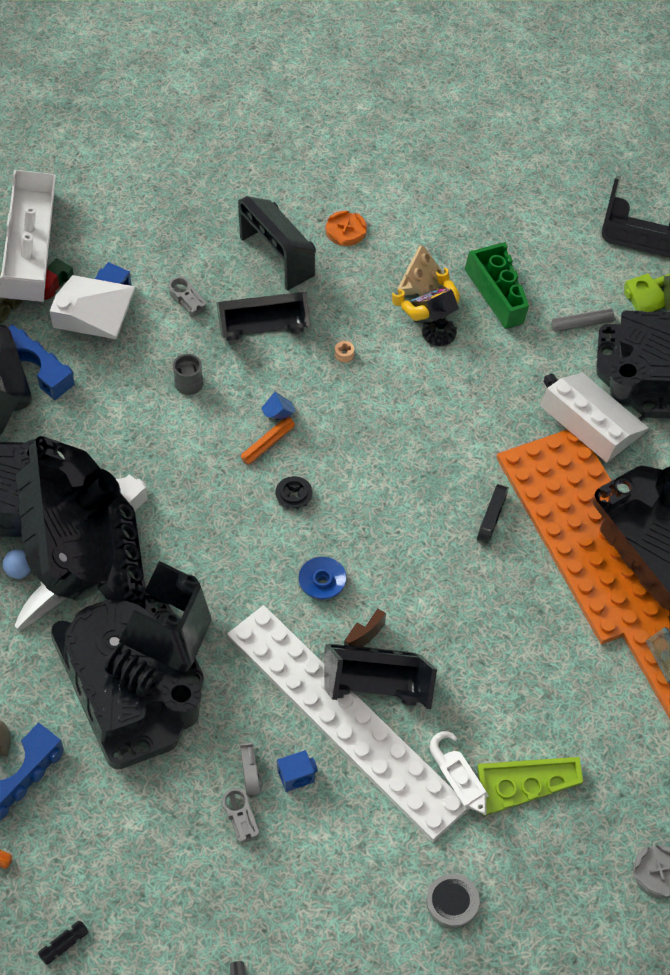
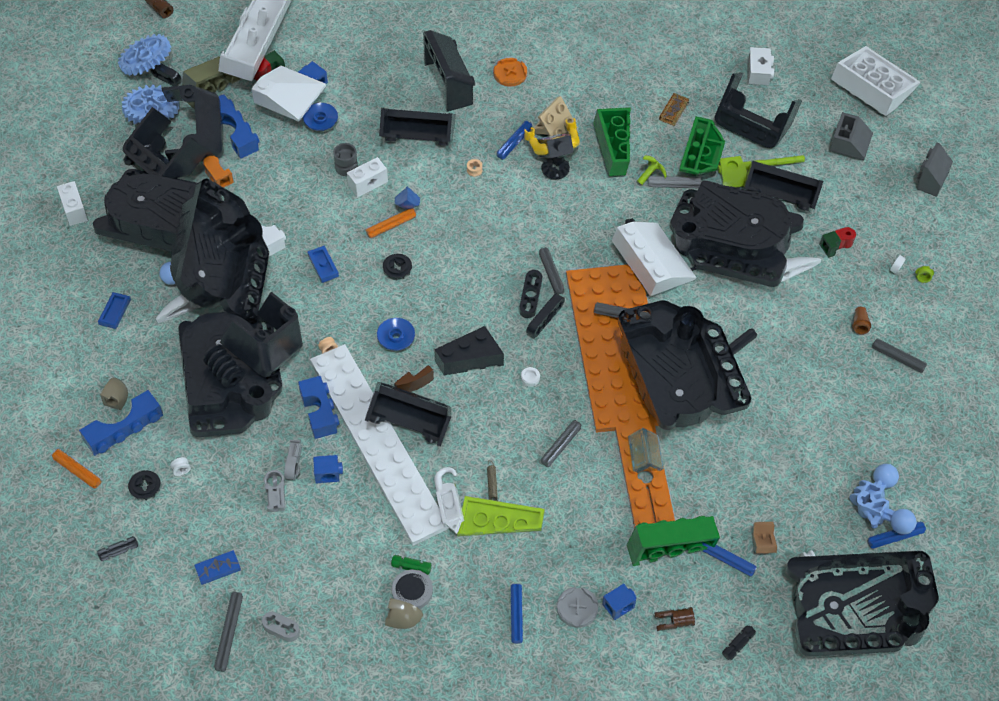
camera: 15 degrees right, 0 degrees up
(32, 424) = (216, 172): none -> orange leg
(59, 845) = (136, 482): none -> black gear
(110, 812) = (180, 466): none -> white bush
(139, 321) = (320, 116): none -> blue dish
(189, 299) = (368, 101): light grey piece -> none
(199, 934) = (217, 567): none -> blue tile
(202, 510) = (323, 264): none -> blue plate
(221, 390) = (367, 177): none -> white brick
(243, 611) = (327, 344): none -> light nougat bush
(248, 676) = (315, 393): none -> blue arch
(379, 308) = (512, 142): none -> blue axle
(420, 580) = (469, 352): none -> black wedge
(440, 867) = (411, 564): none -> green axle
(453, 937) = (402, 614): none -> dark tan brick
(468, 482) = (533, 300): none -> black beam
(479, 457) = (551, 270): none -> dark grey axle
(500, 593) = (530, 377): none -> white tile
(501, 737) = (492, 482): none -> dark tan piece
(551, 234) = (674, 109): none -> clear orange tile
(554, 304) = (653, 165): none -> lime plant
(566, 668) = (561, 443): none -> dark grey axle
(574, 490) = (611, 310): none -> dark grey axle
(590, 899) = (516, 614): none -> blue axle
(604, 273) = (703, 148): none -> green wedge
(630, 164) = (760, 66): none -> white brick

